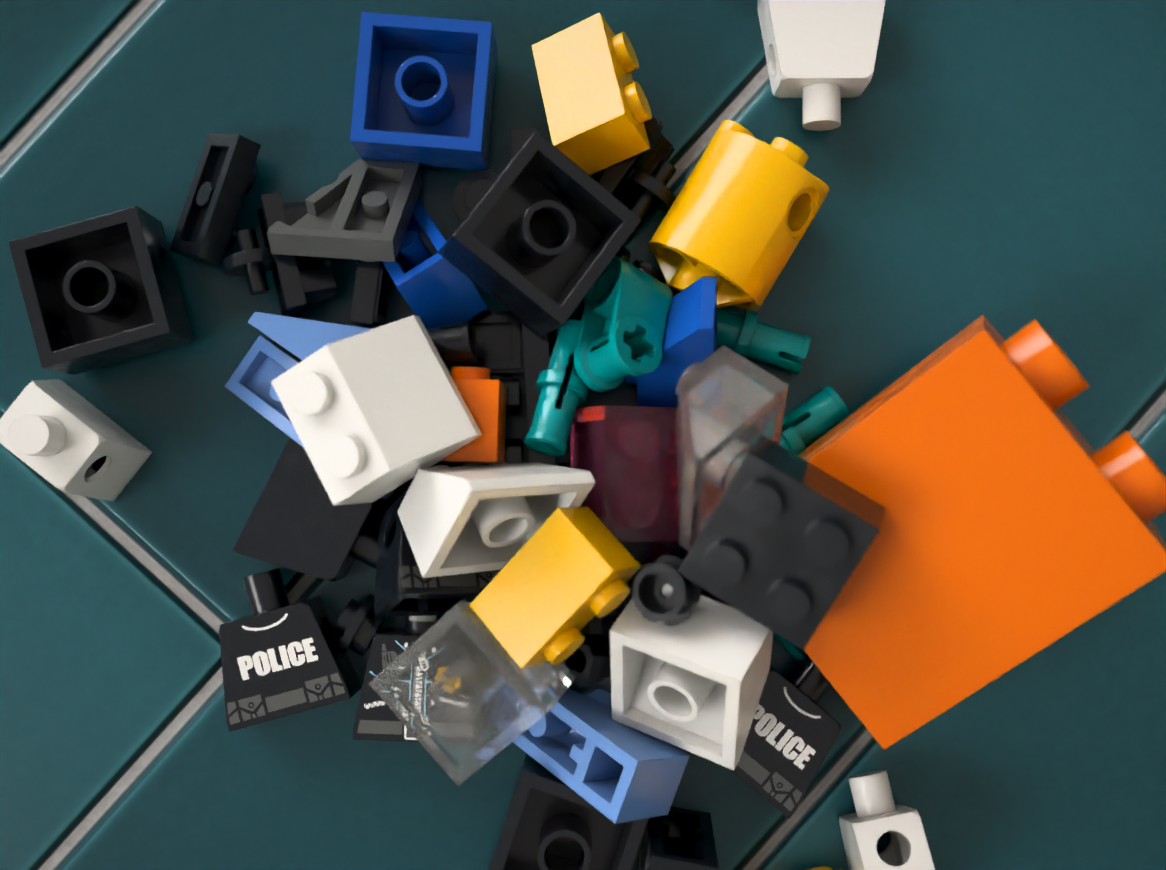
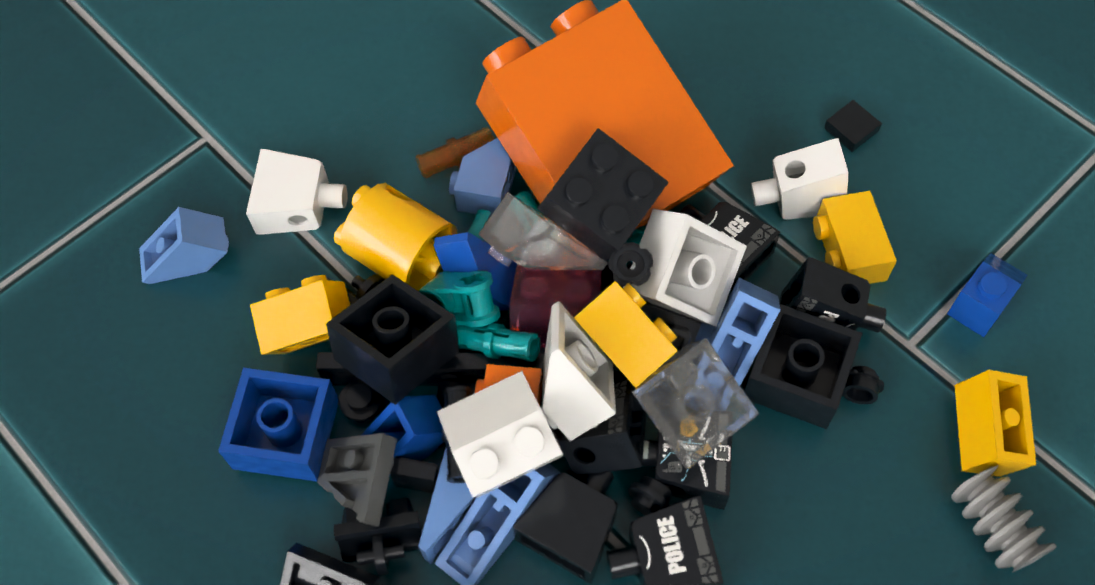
camera: 85 degrees left, 25 degrees down
(864, 340) = (482, 178): none -> medium blue slope
(919, 288) = (452, 152): none -> clear orange pin

